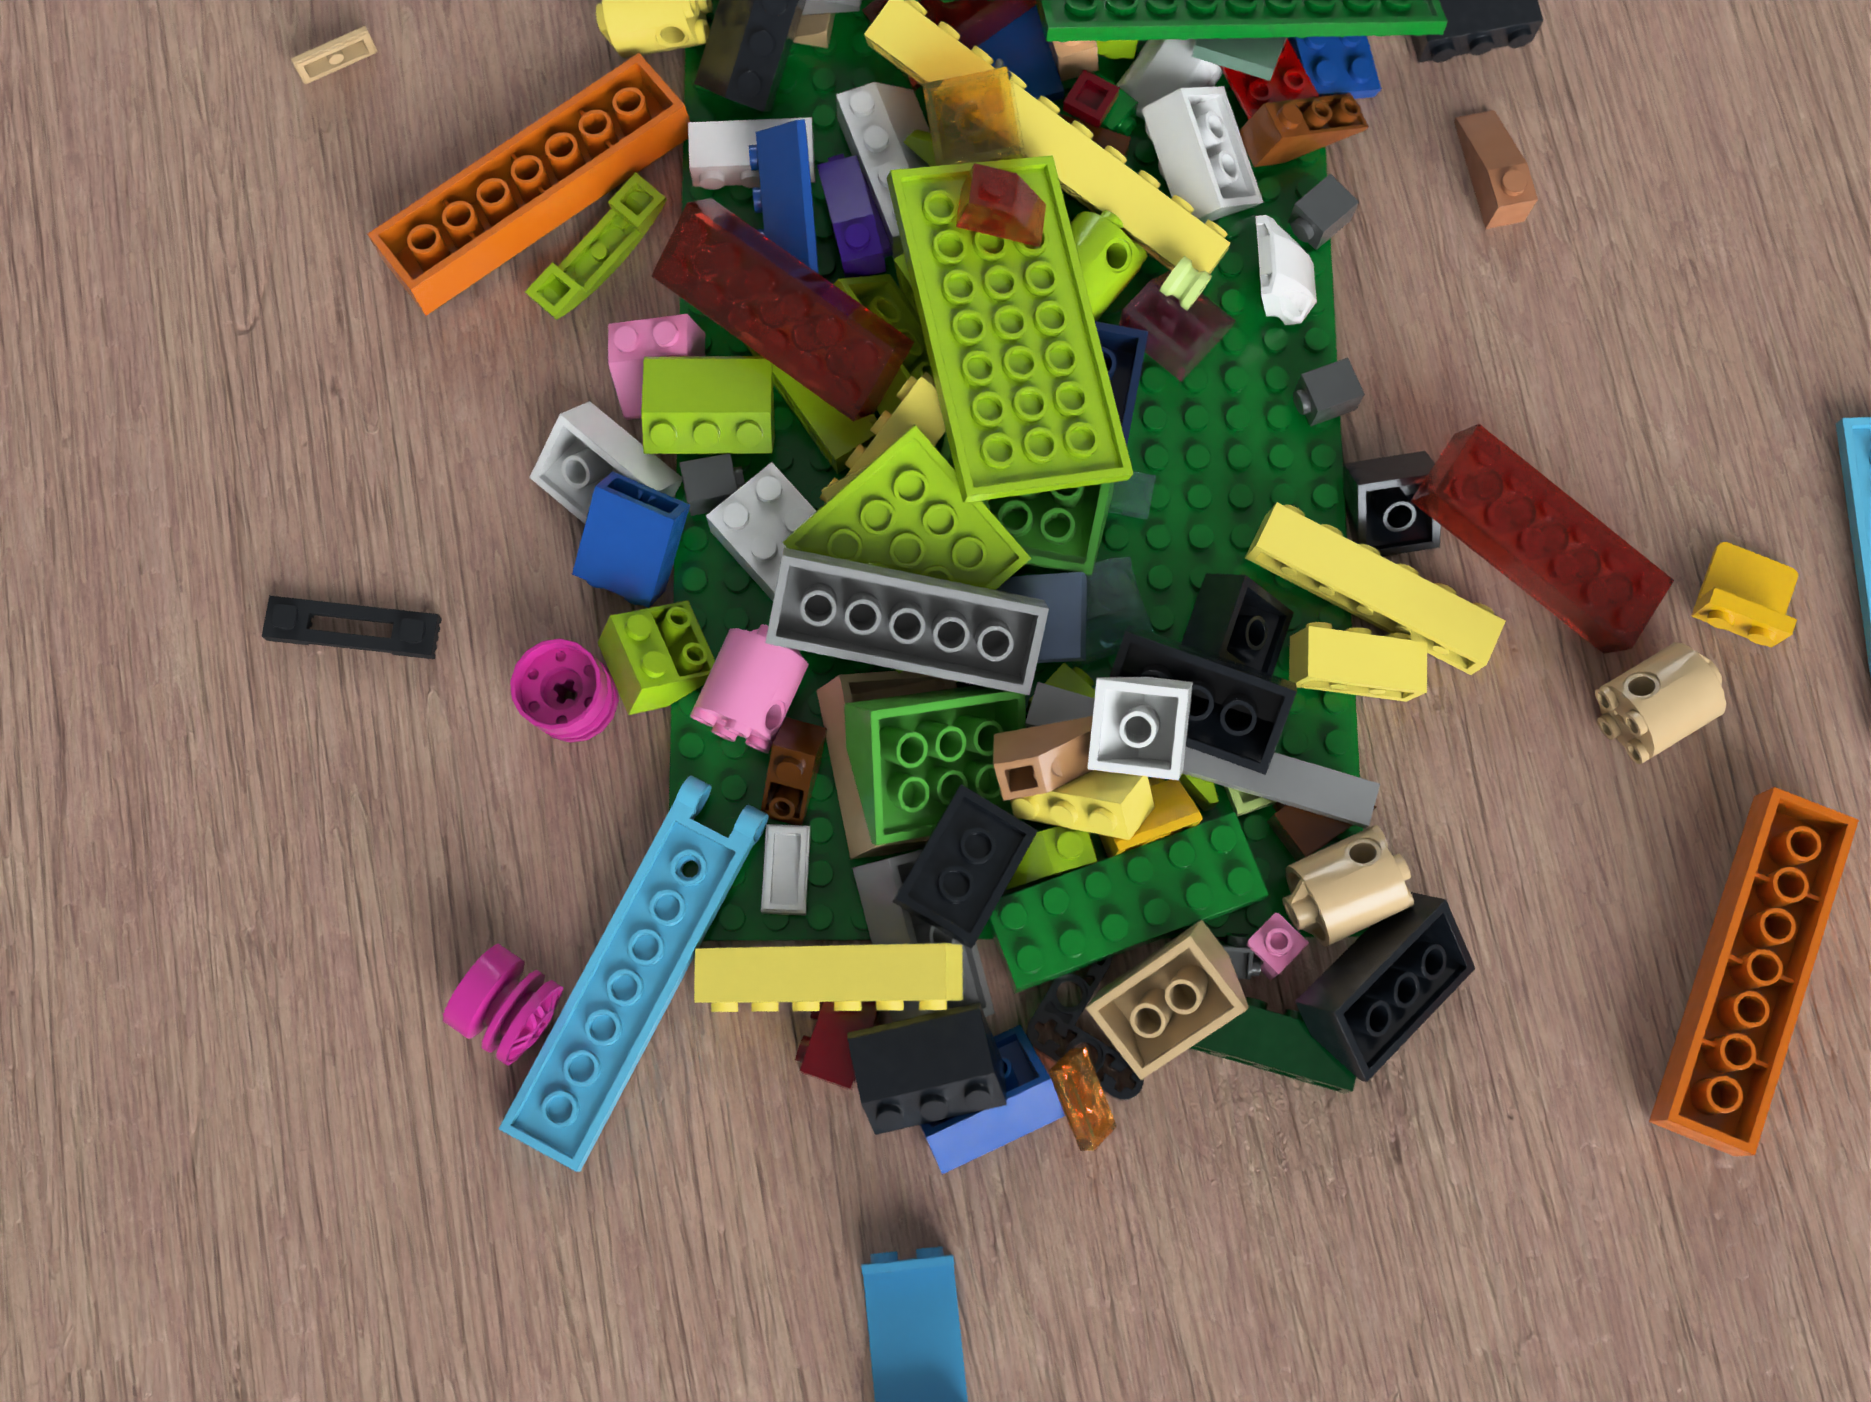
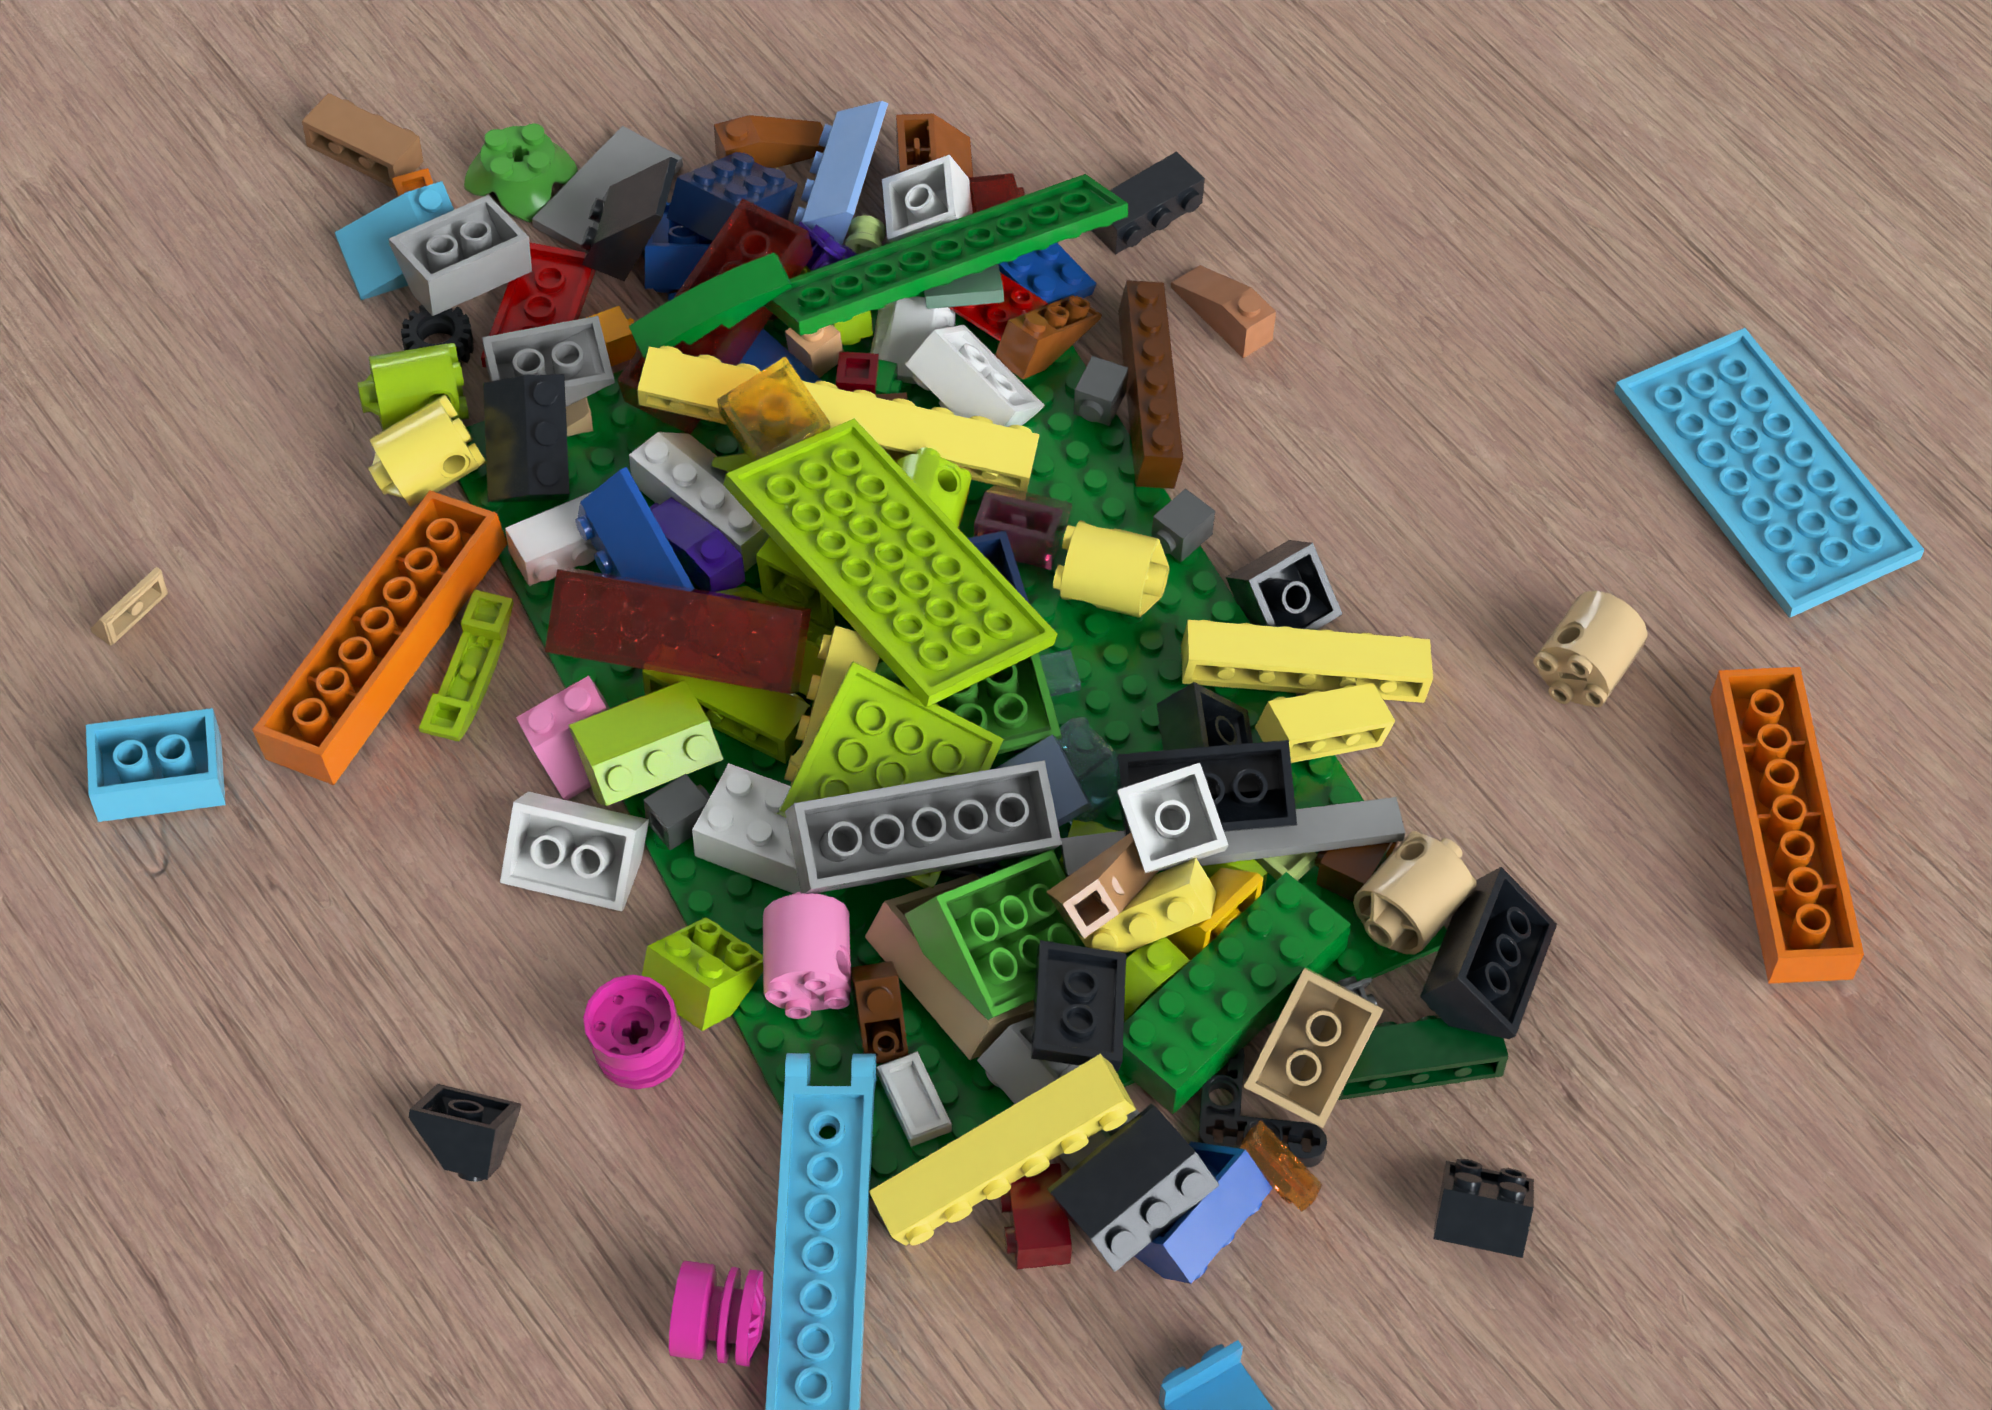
camera: 25 degrees left, 20 degrees down
(275, 227) = (155, 765): none -> medium azure brick
(379, 711) = (465, 1129): none -> black slope
(412, 632) = (335, 1094): black container -> none
(630, 539) = (630, 883): blue brick -> none
(1000, 206) = (834, 465): clear red slope -> none
(1185, 283) = (1018, 478): yellowish green wheel -> none
(1232, 413) = (1112, 569): none -> light yellow cylinder
(1253, 1226) = (1484, 1208): none -> black slope
(1276, 945) = (1382, 970): bright pink bracket -> none
(1285, 273) = (1095, 446): white slope -> none
(1375, 224) = (1150, 385): none -> reddish brown brick
(1542, 540) = (1425, 562): clear red brick -> none
(1747, 595) = (1617, 546): yellow bracket -> none

